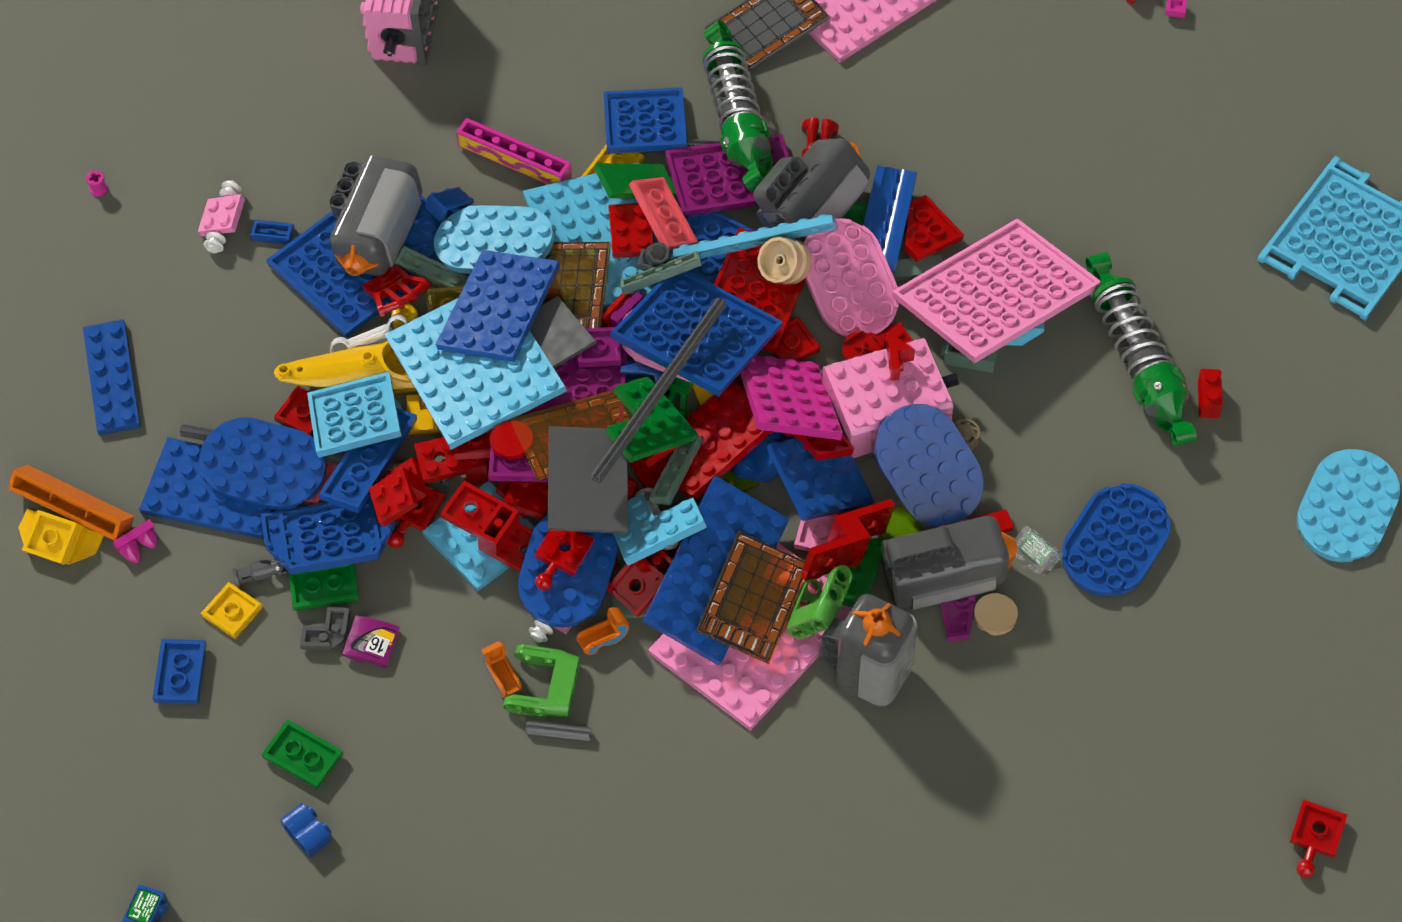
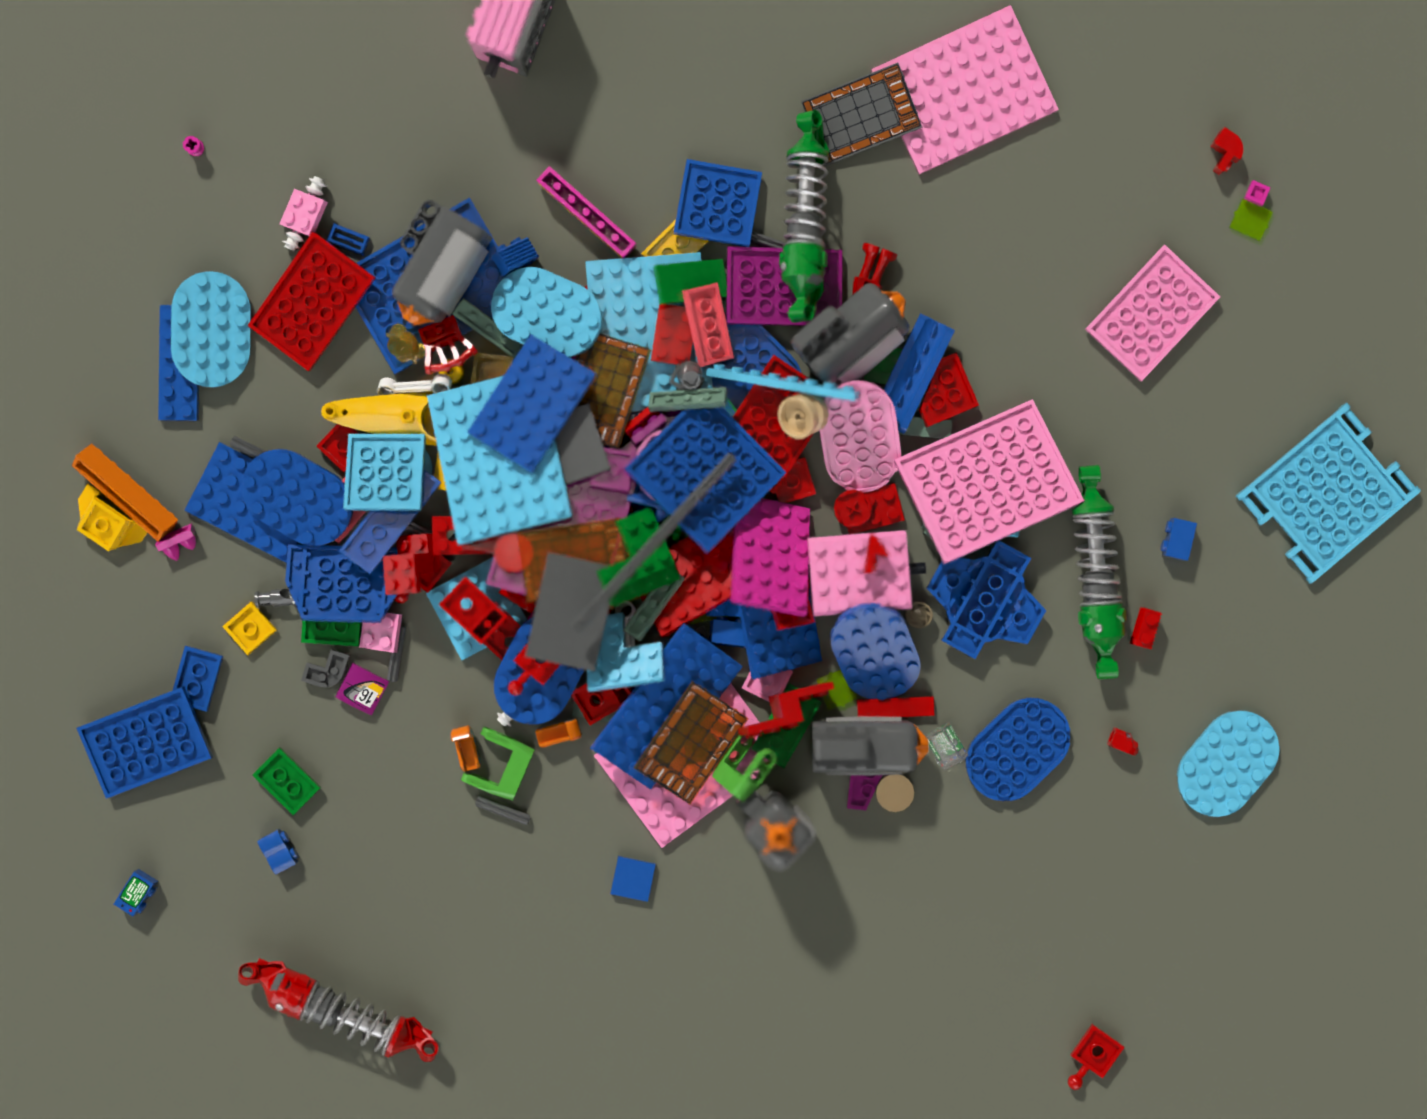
camera: 15 degrees right, 30 degrees up
(130, 746) = (144, 742): none -> blue plate
(141, 335) = (210, 329): none -> medium azure plate
(244, 287) = (311, 301): none -> red plate
(351, 300) = (404, 345): none -> clear yellow hair
(380, 578) = (382, 635): none -> bright pink plate
(402, 609) = (395, 658): none -> dark grey axle
(726, 769) = (633, 878): none -> blue tile
(768, 491) = (726, 632): none -> blue brick
(1031, 402) = (986, 599): none -> blue plate
(1111, 123) = (1152, 313): none -> bright pink plate
(1179, 31) = (1251, 219): none -> clear neon green piece
(1213, 307) = (1178, 539): none -> blue brick
(1227, 507) = (1123, 741): none -> red rock

